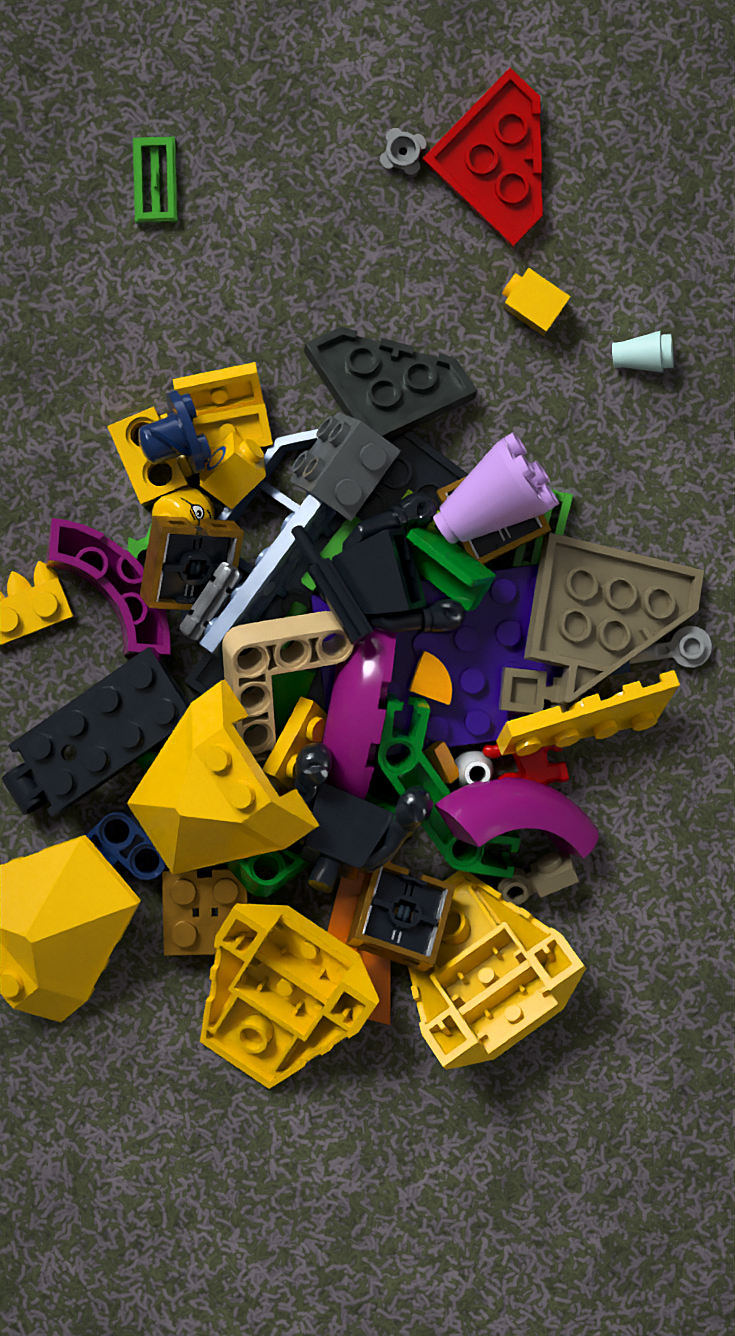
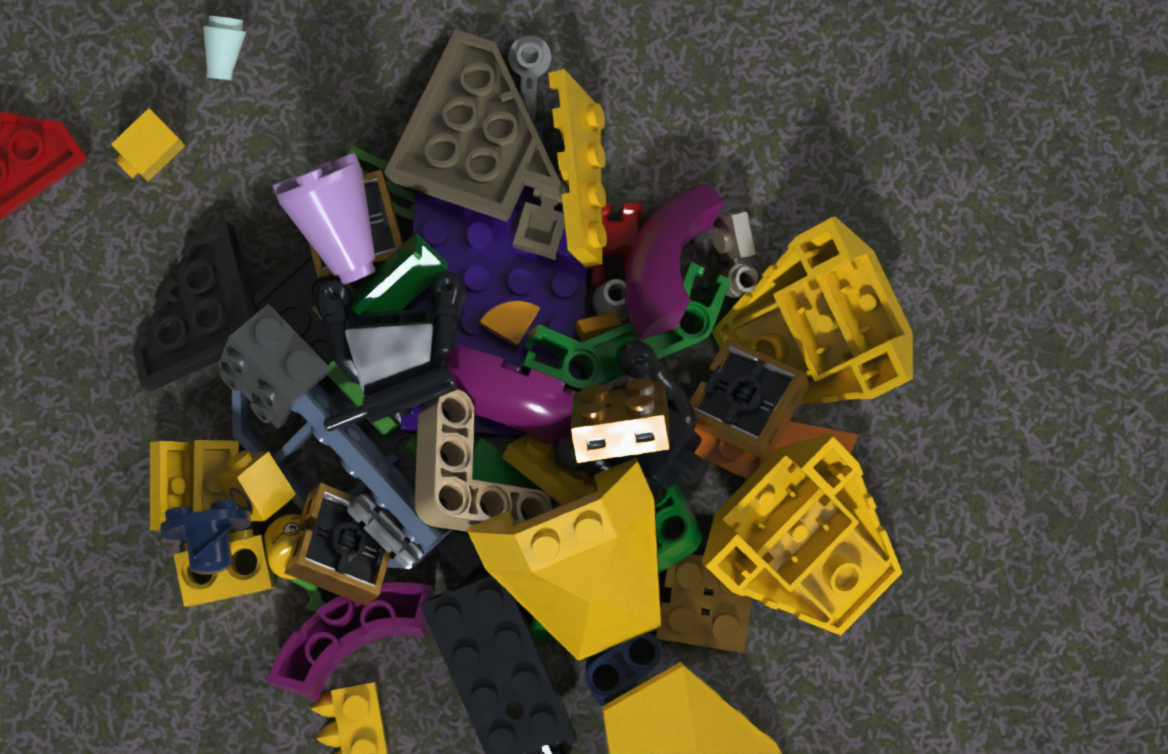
camera: 75 degrees left, 5 degrees down
(350, 804) = (620, 420): none -> pearl gold piece

